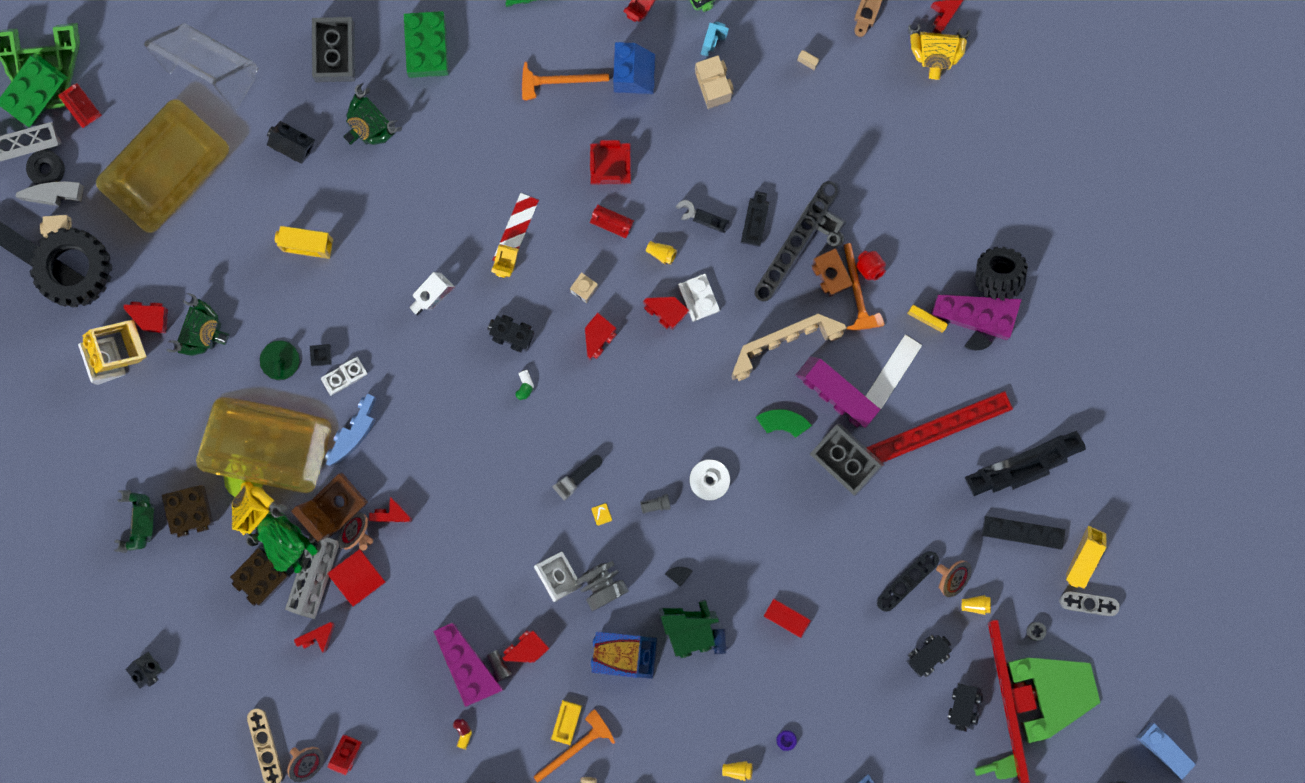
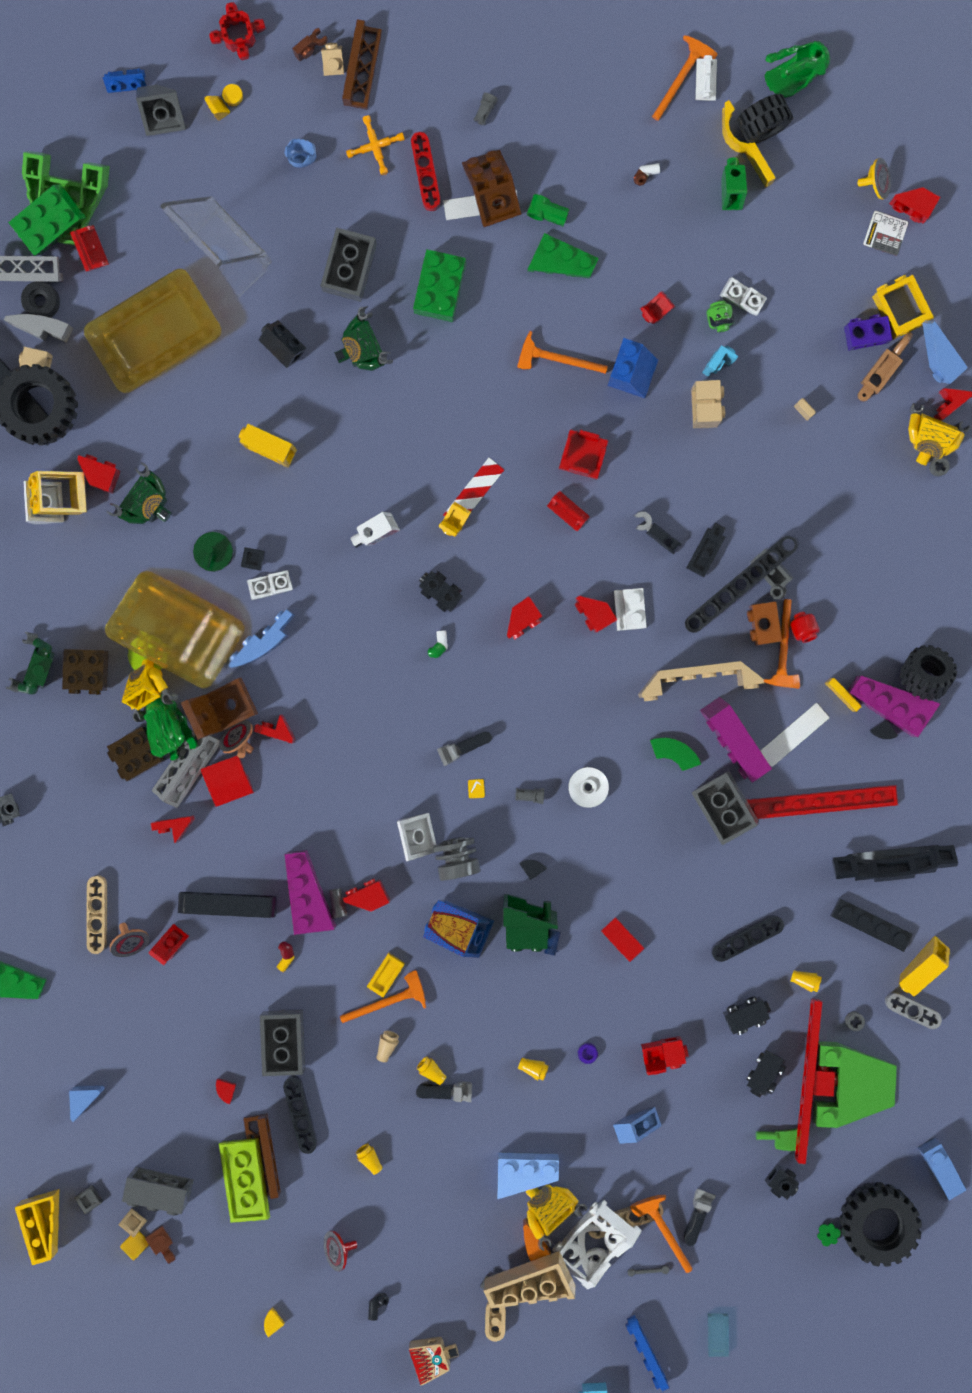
camera: 15 degrees right, 5 degrees up
(390, 699) = (227, 904): none -> black beam
(584, 287) = (522, 568): tan brick -> none
(662, 252) = (608, 556): yellow cone -> none
(851, 724) = (653, 1058): none -> red bracket
(870, 713) = (674, 1052): none -> red brick
(954, 578) = (792, 951): shield -> none
(955, 82) = (939, 473): none -> dark grey bush

